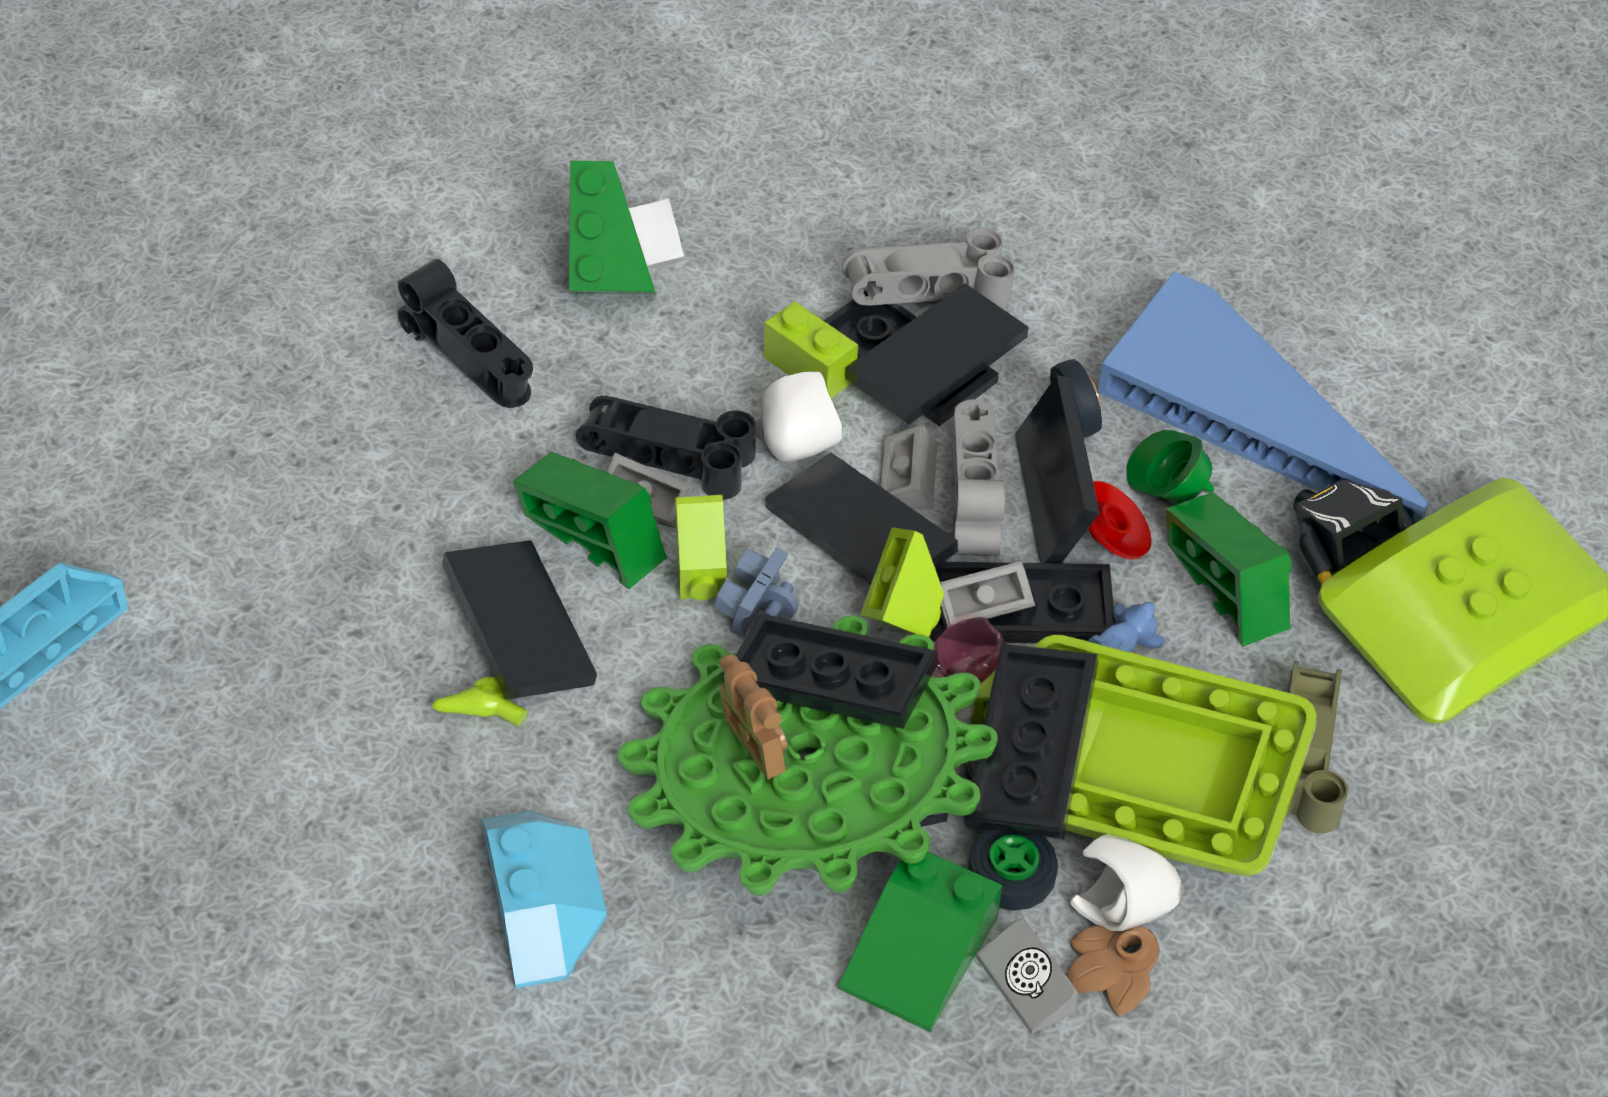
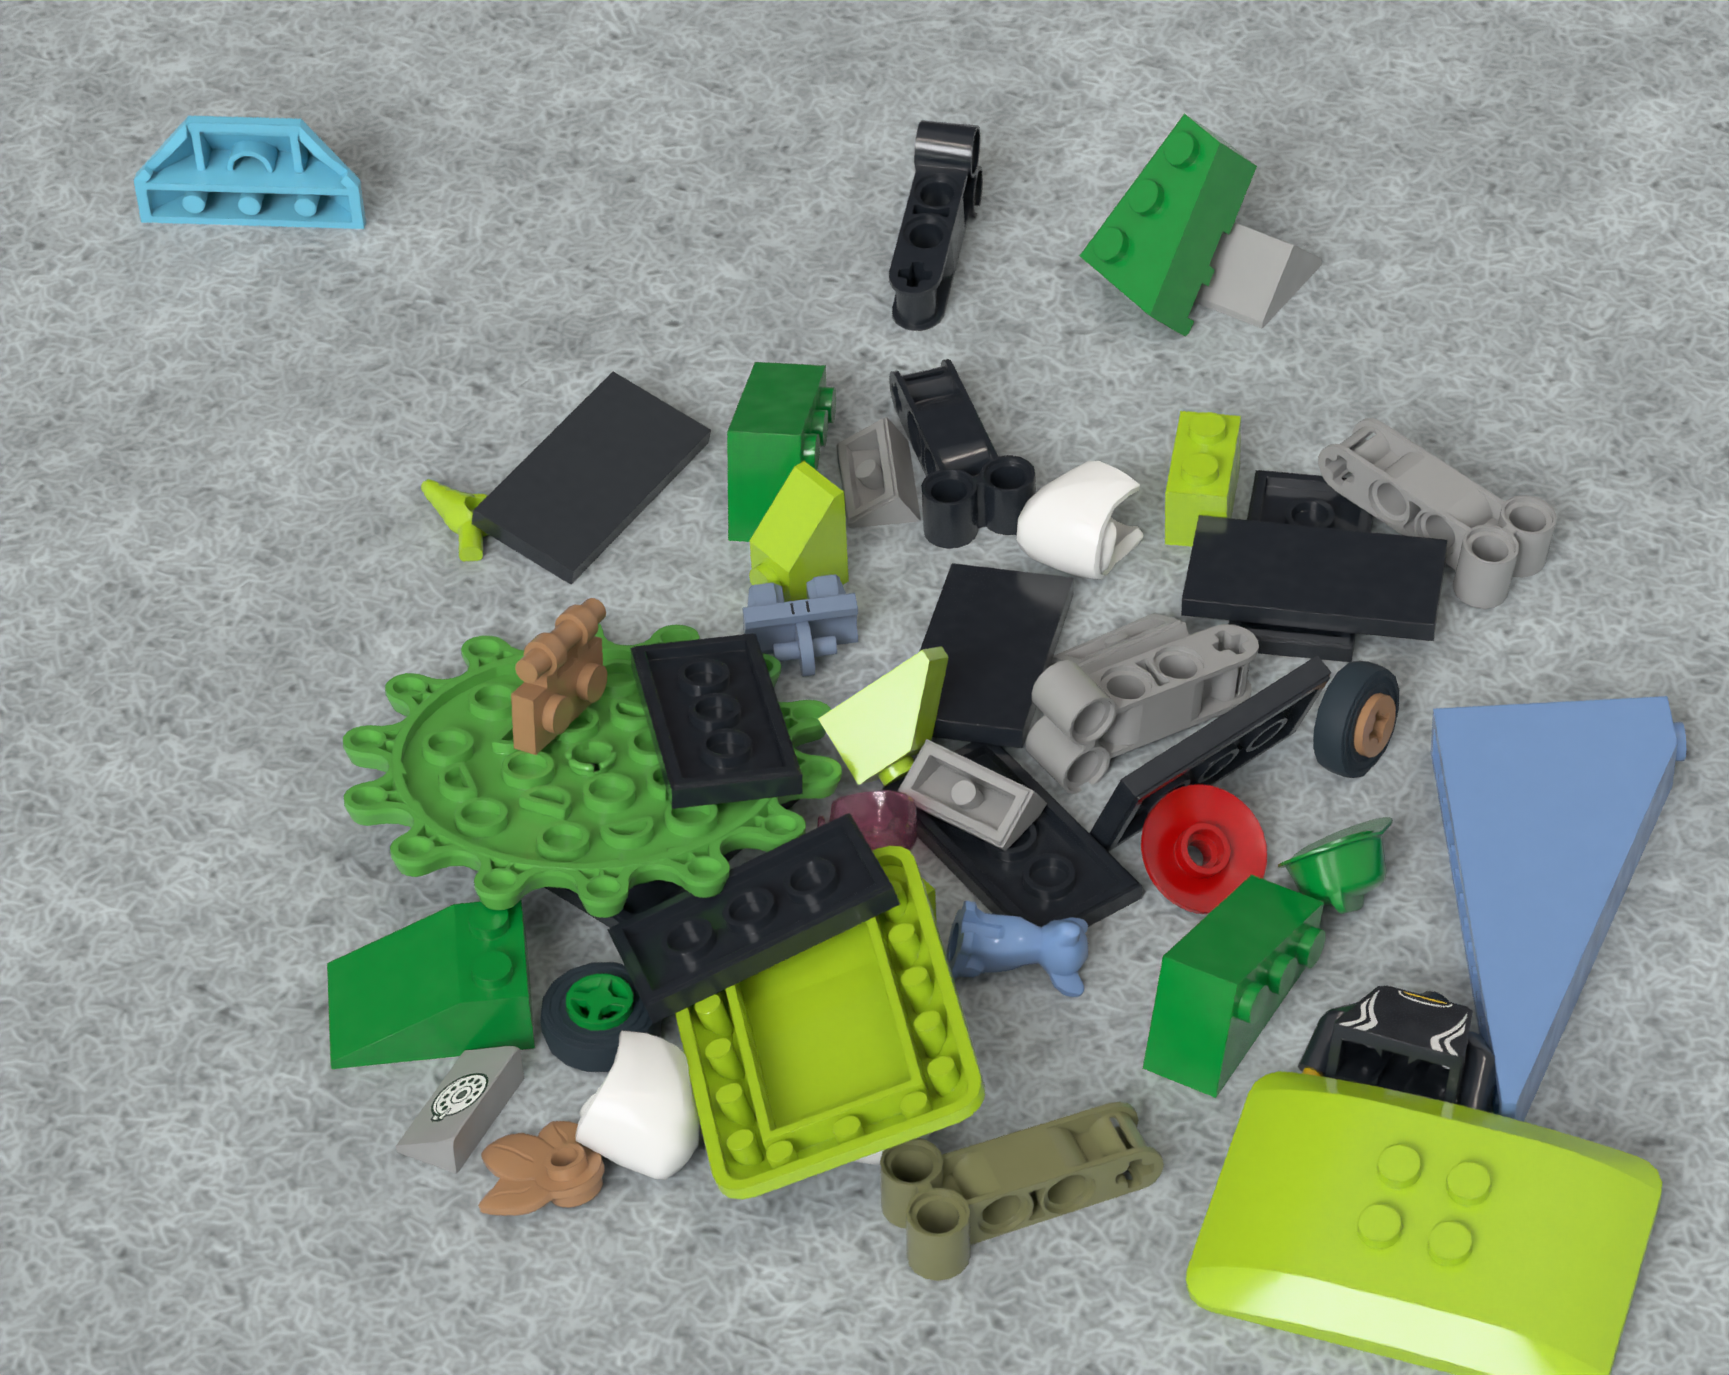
camera: 60 degrees right, 5 degrees down
(544, 893) = (244, 674): medium azure wedge -> none

